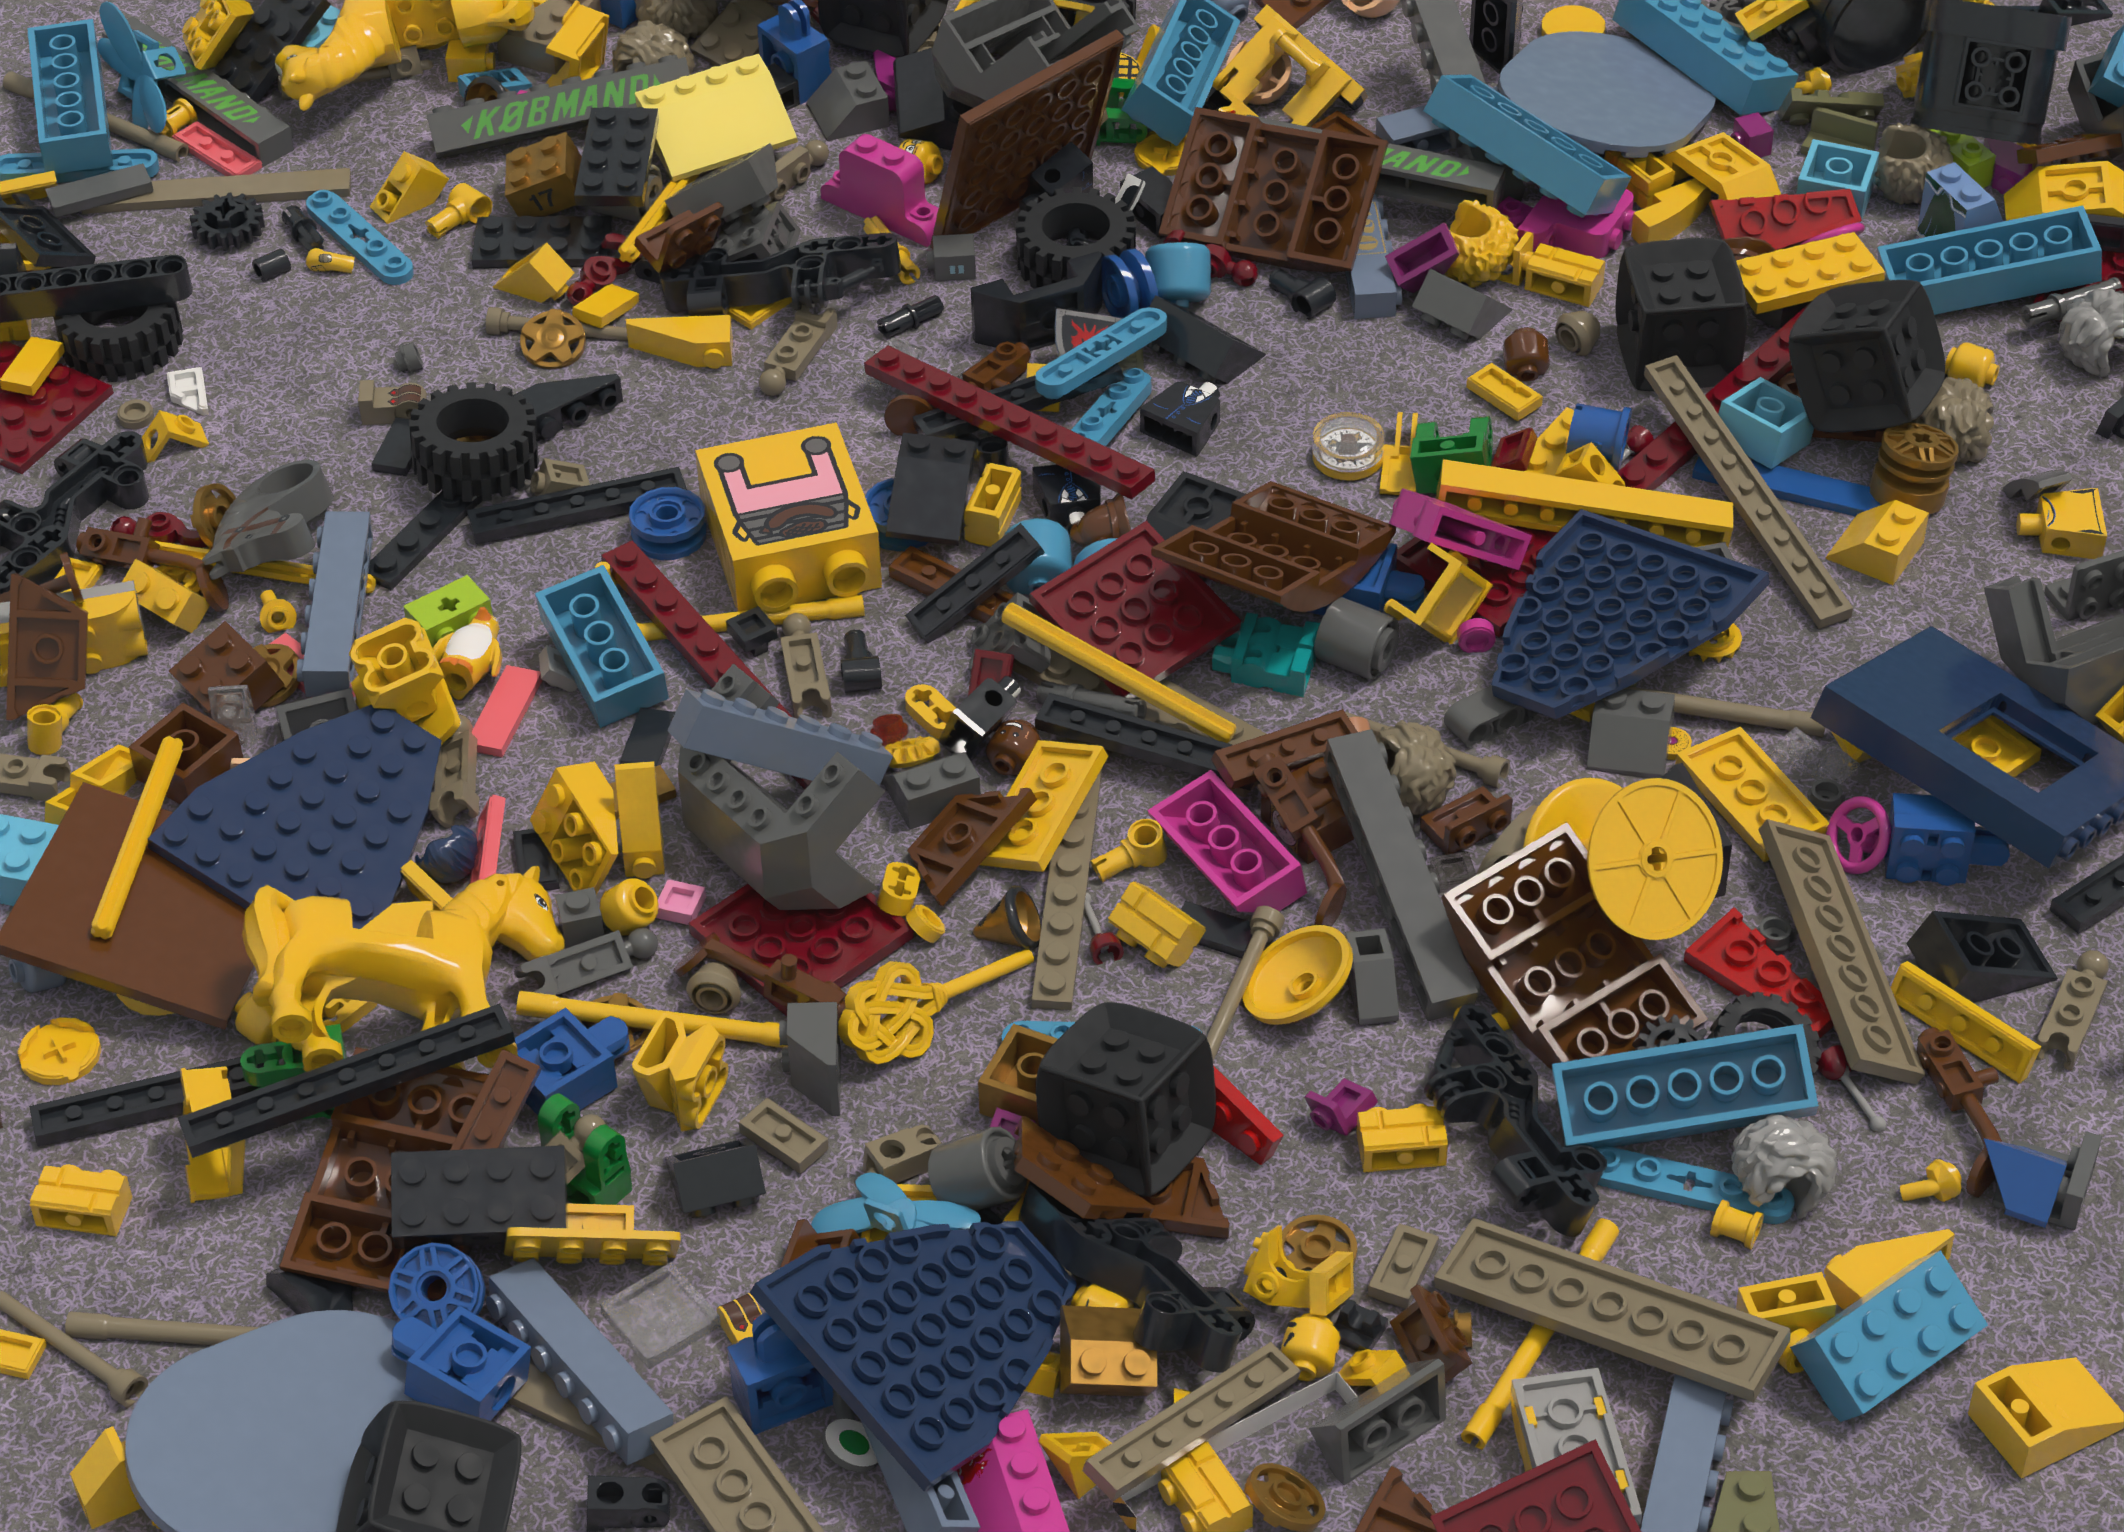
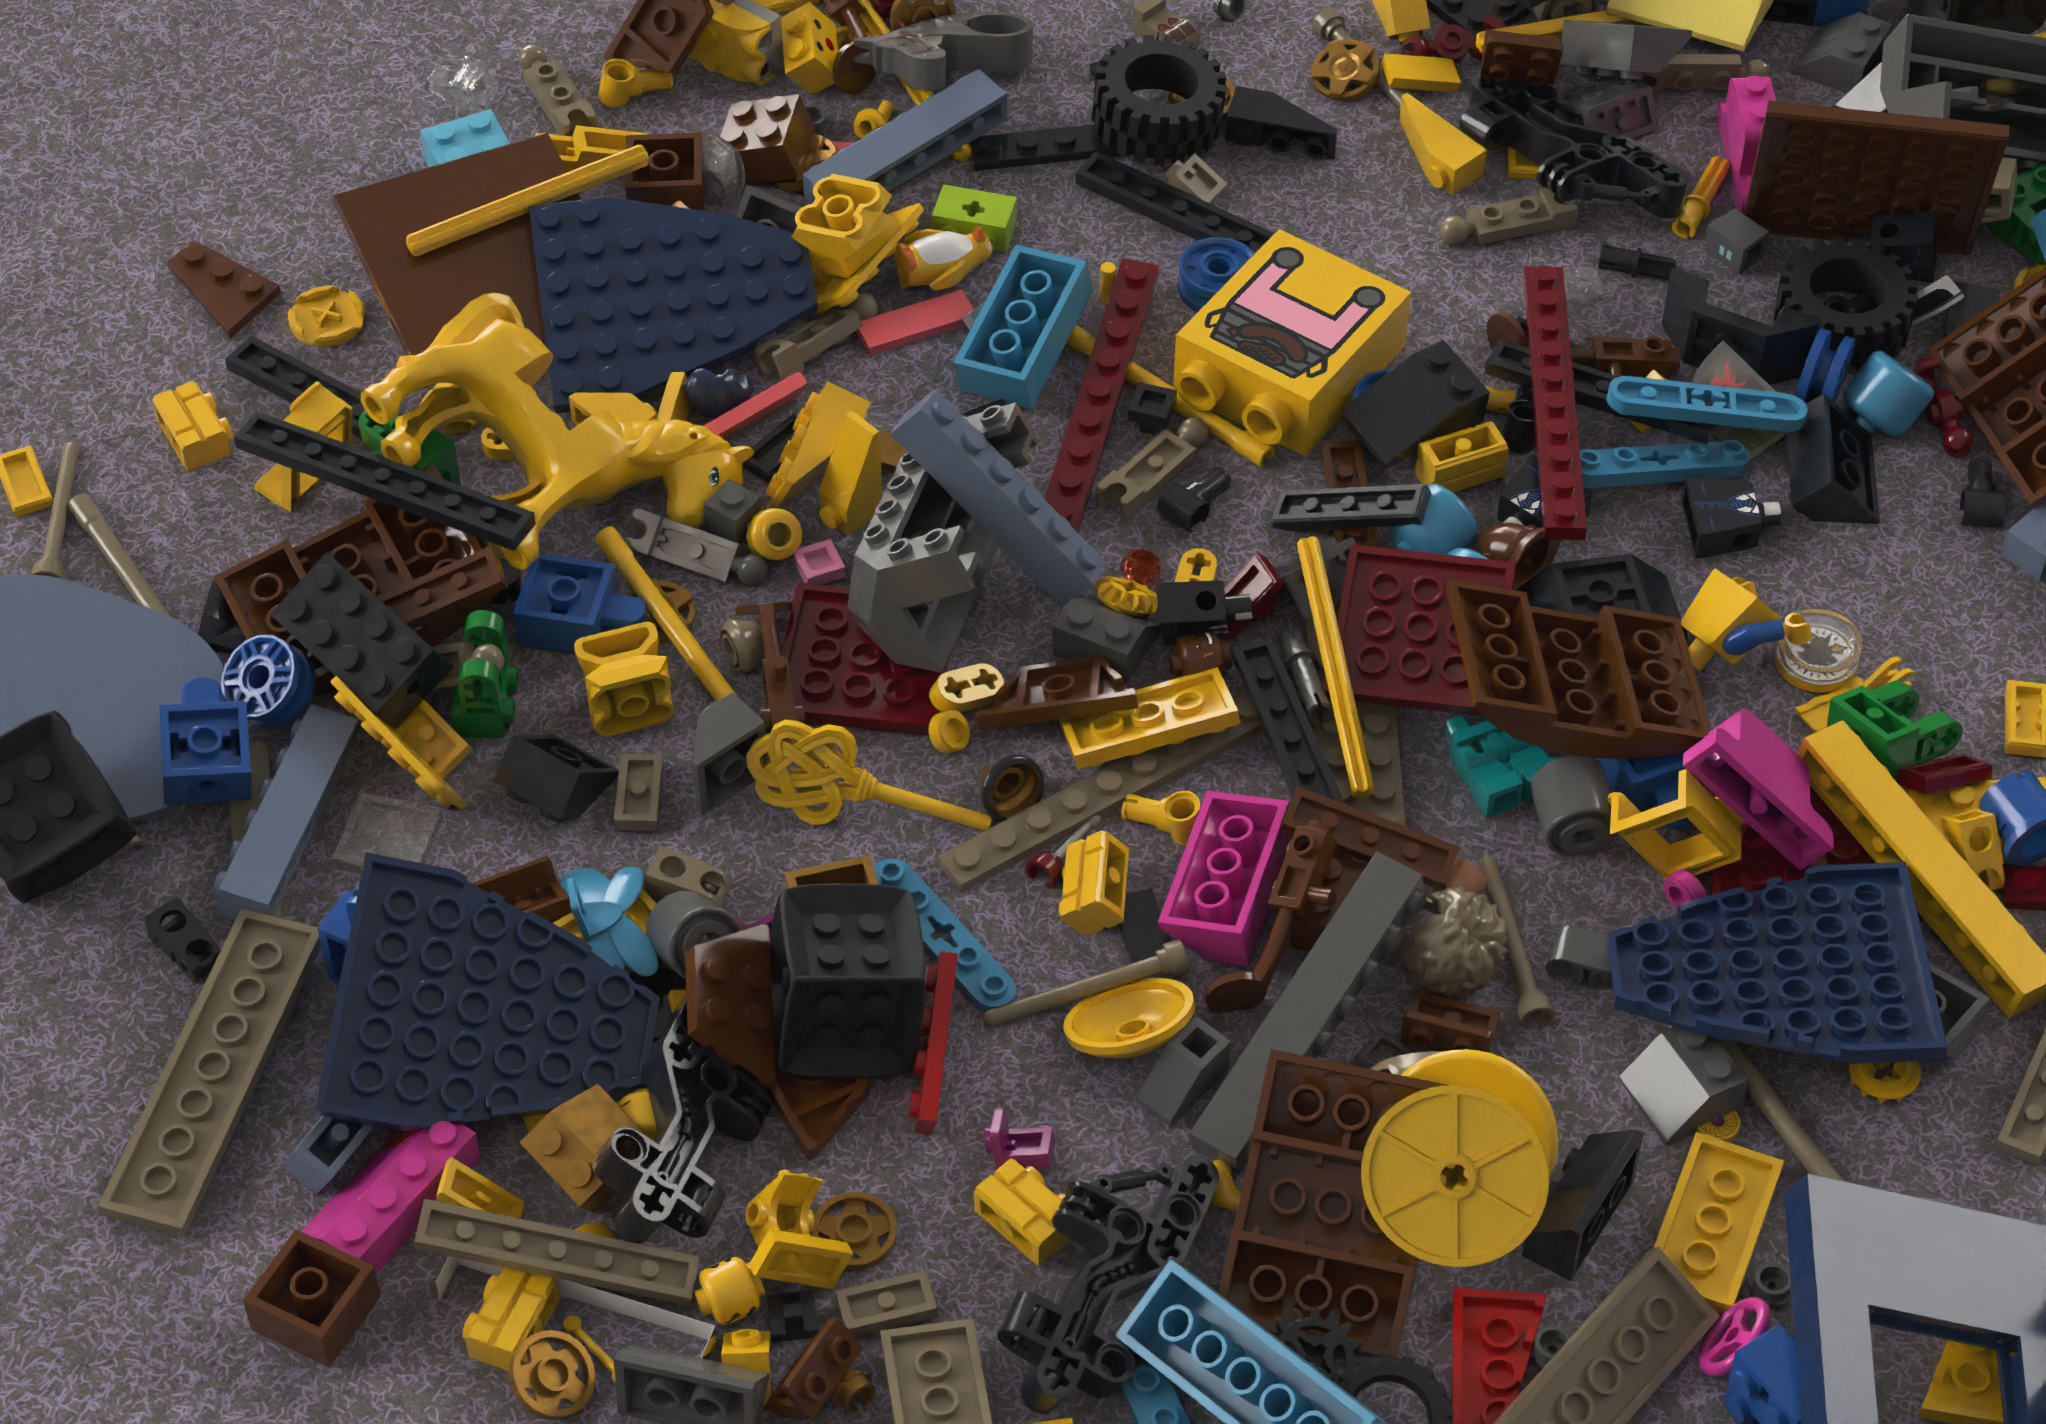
camera: 50 degrees right, 5 degrees up
(1289, 458) = (1732, 620): none -> yellow torso
(1312, 1463) = (572, 1325): none -> yellow hinge

